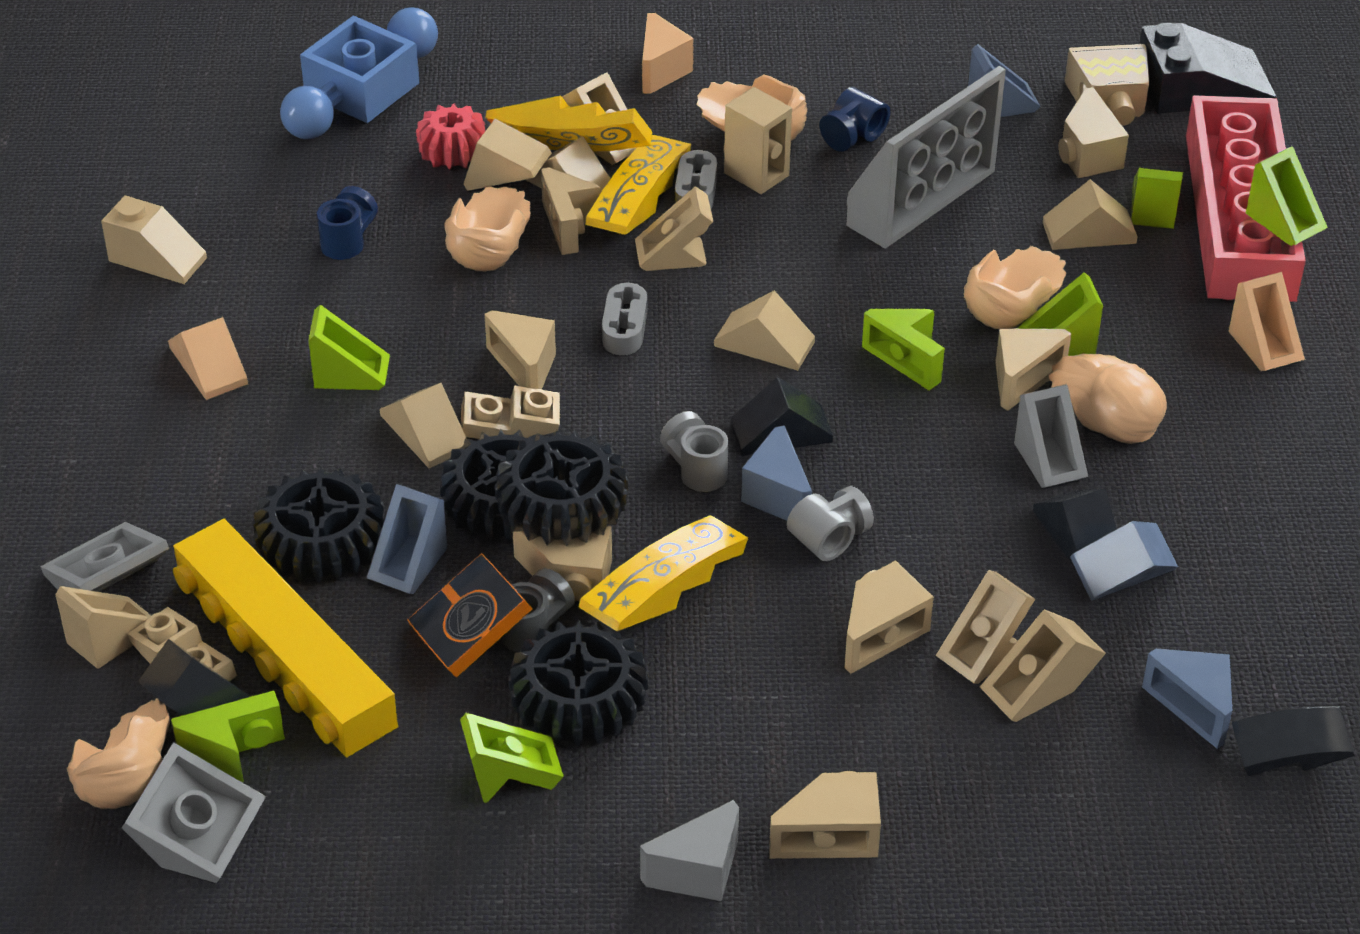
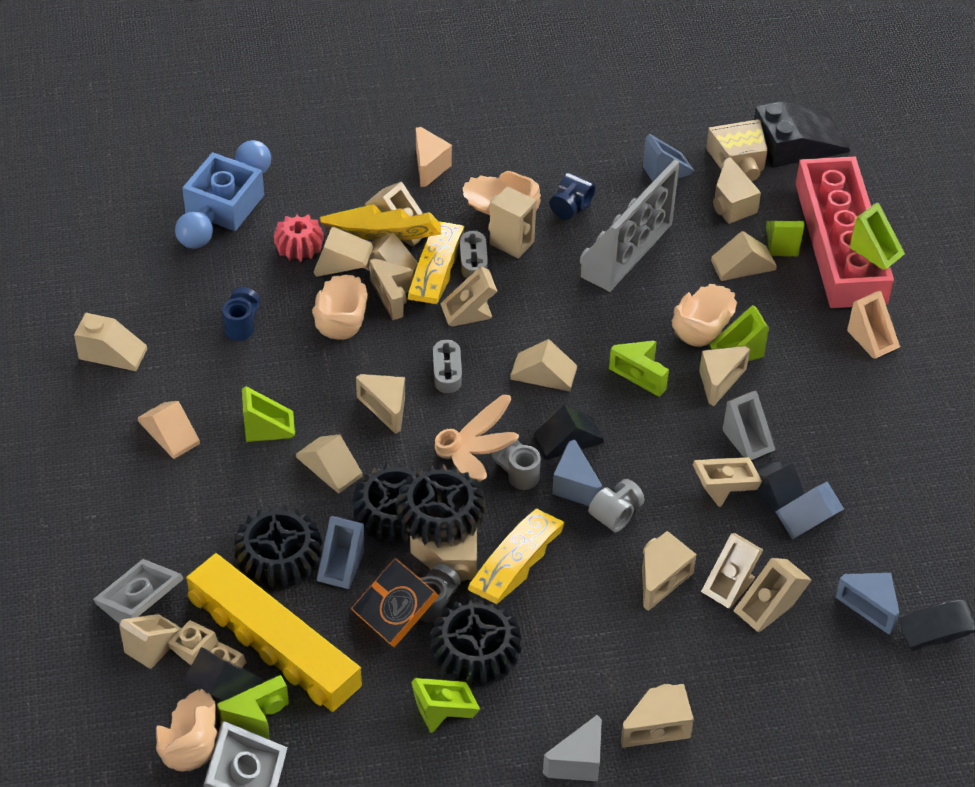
camera: 10 degrees left, 5 degrees up
(527, 410) = (393, 448): tan slope -> none
(616, 421) = (468, 441): none -> light nougat plant
(1001, 496) = (726, 475): none -> tan slope
(1111, 396) = (781, 390): light nougat hair -> none

